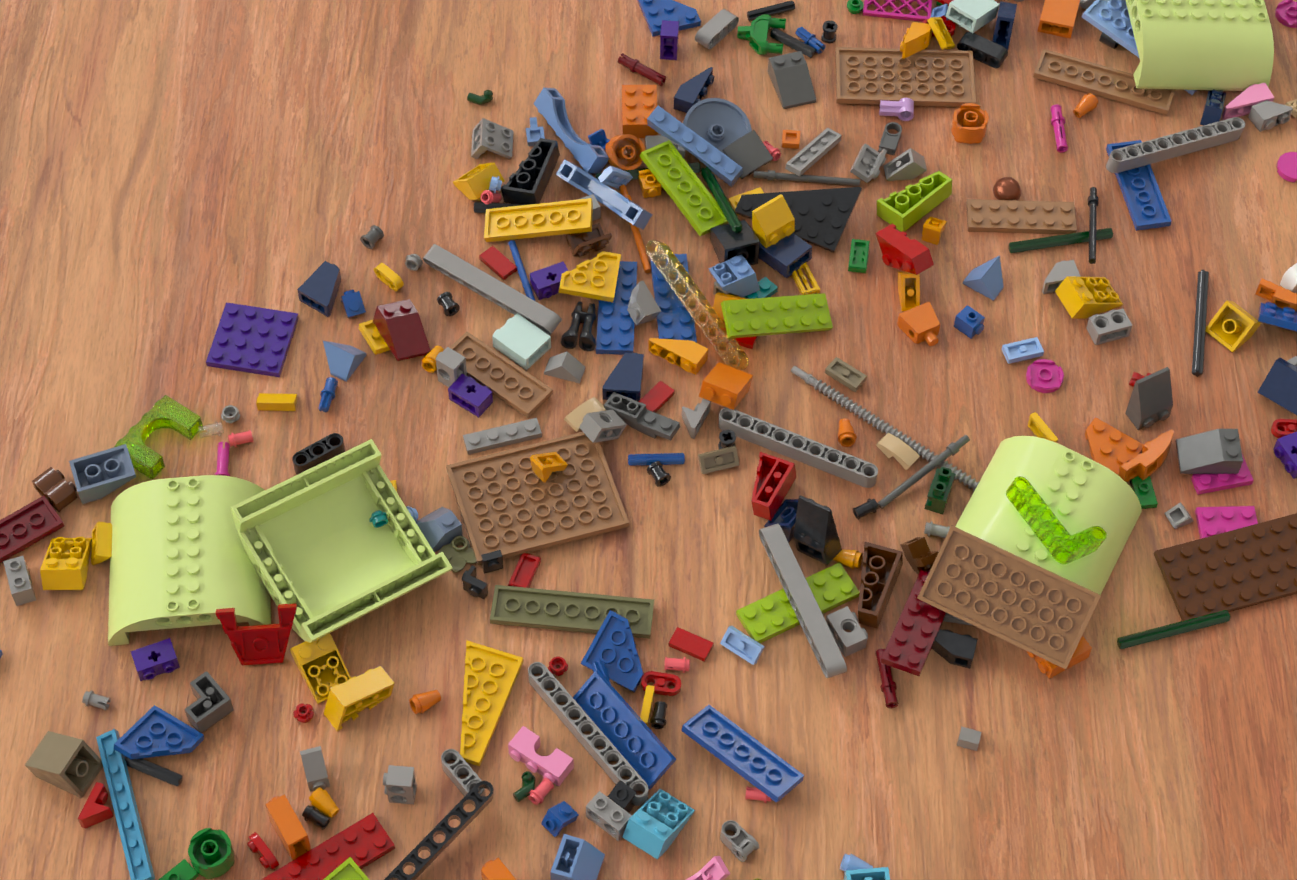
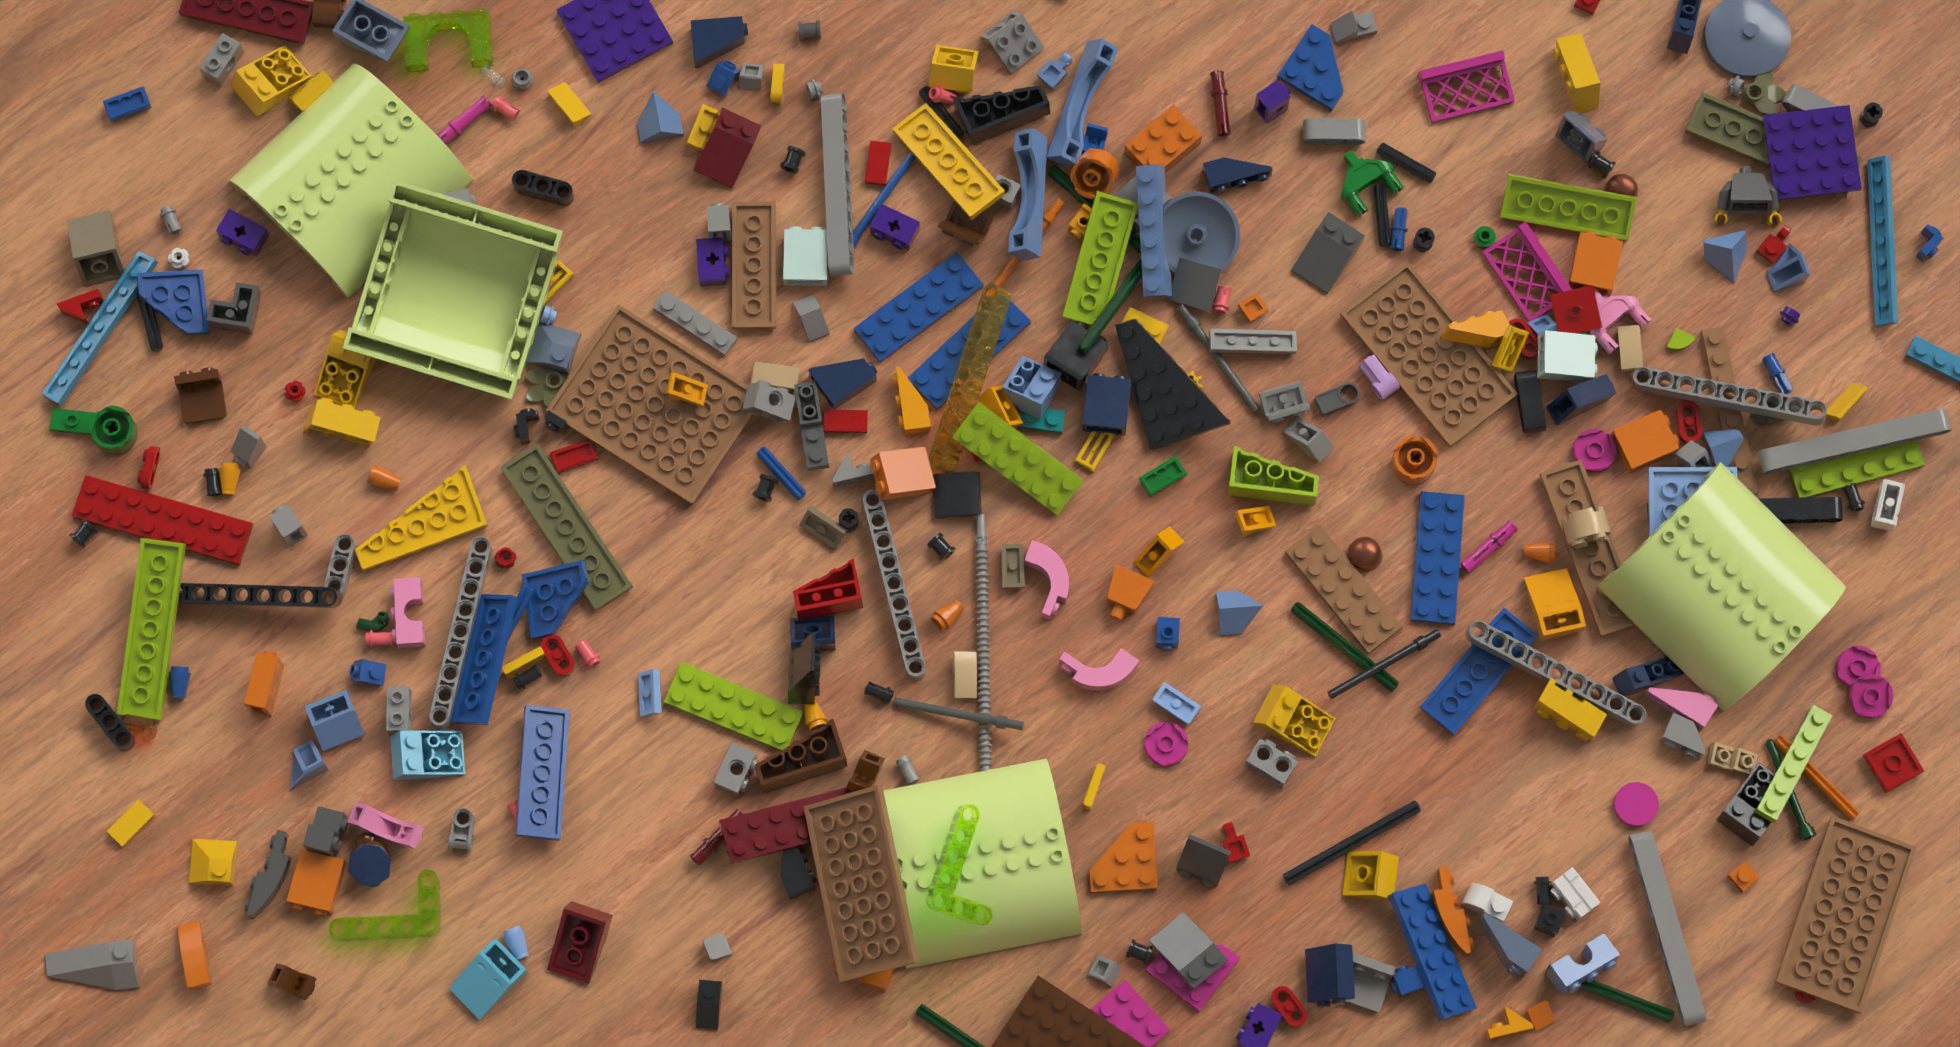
camera: 50 degrees right, 20 degrees up
(129, 721) = (172, 258): none -> white plate
(244, 775) = (201, 395): none -> reddish brown bracket
(259, 642) = (319, 301): red wing -> none
(288, 826) = (180, 470): orange brick -> none
(328, 394) = (610, 141): blue axle -> none
(368, 290) = (751, 76): none -> light grey slope
(378, 519) = (513, 295): teal plate -> none
(429, 360) = (724, 196): light orange cone -> none
(495, 184) = (953, 90): light blue plate -> none
(586, 340) = (855, 310): black piece -> none
(593, 278) = (922, 264): yellow plate -> none
(614, 177) = (1058, 190): light blue plate -> none
(622, 795) = (420, 708): black bracket -> none
(642, 305) = (931, 329): light grey slope -> none
(691, 644) = (618, 649): red tile -> none
(767, 371) = (957, 494): none -> black slope
(773, 221) = (1115, 375): yellow slope -> none
(795, 403) = (941, 547): none -> black bush
(802, 601) = (729, 709): light grey beam -> none
(872, 353) = (1051, 565): none -> bright pink arch
(892, 823) = (579, 941): none -> dark red slope
(902, 252) = (1188, 515): red wedge -> none
(940, 490) = (949, 741): dark green hips -> none
(962, 384) = (1100, 678): none -> bright pink arch
(1009, 770) = (709, 1004): none -> black slope
(1039, 40) = (1595, 449): none -> dark pink tile
(1043, 158) = (1437, 558): none -> blue plate
(1058, 274) = (1295, 676): light grey slope -> none
(1095, 65) = (1586, 527): none -> tan brick
(1128, 119) = (1554, 604): none -> light orange slope
(1144, 492) = (1106, 919): green plate -> none
(1152, 457) = (1149, 904): orange slope -> none
(1183, 485) = (1139, 951): none -> black bush
(1204, 155) = (1569, 711): none -> yellow wedge

